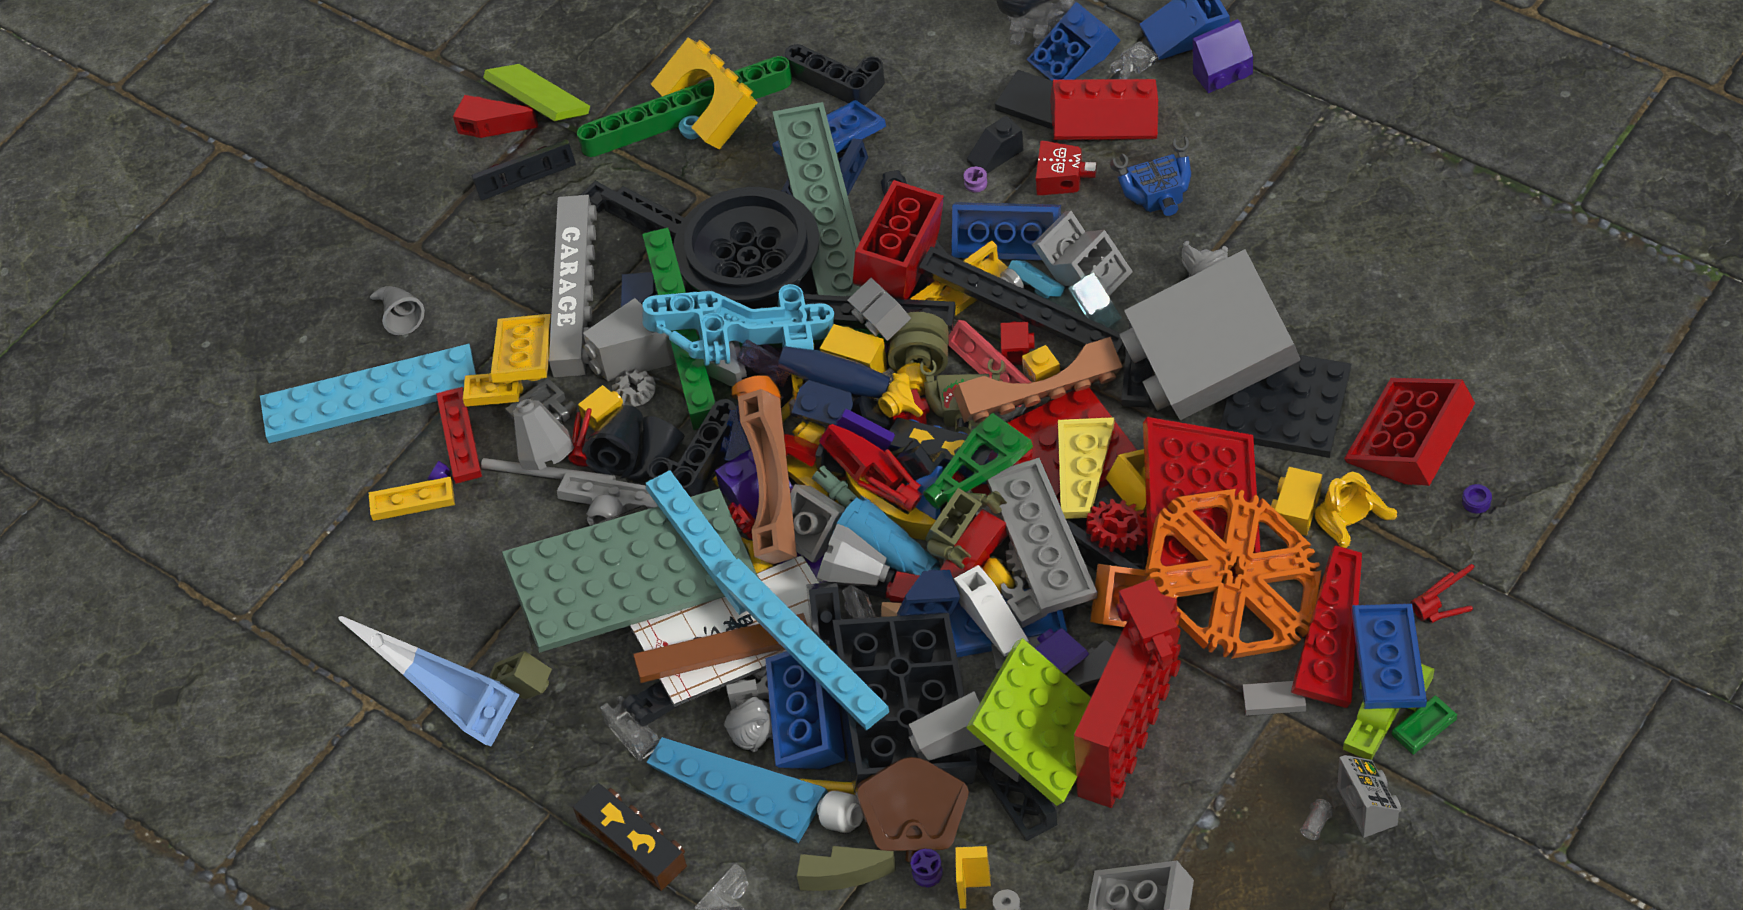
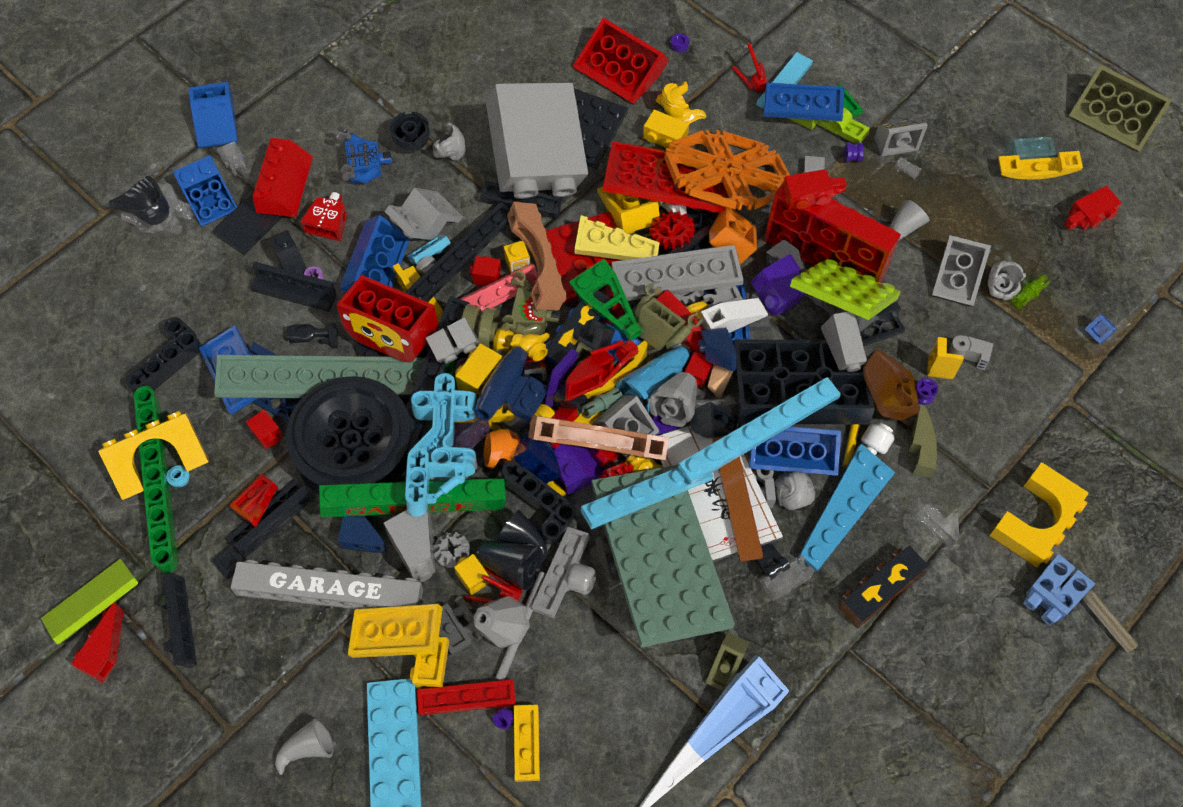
camera: 90 degrees left, 10 degrees up
(667, 194) = (254, 500): none -> red wing
(758, 175) = (264, 429): none -> red brick
(953, 160) = (293, 287): none -> black fence
(1094, 301) = (465, 213): clear light blue plate -> none
(1207, 214) = (410, 131): none -> black cylinder
(1210, 819) = (909, 218): none -> light grey hat
(1222, 56) = (262, 98): slope -> none
(1324, 741) = (853, 152): none -> dark purple wheel
(1329, 646) = (789, 136): red wing -> none
(1457, 647) = (790, 74): none -> medium azure tile

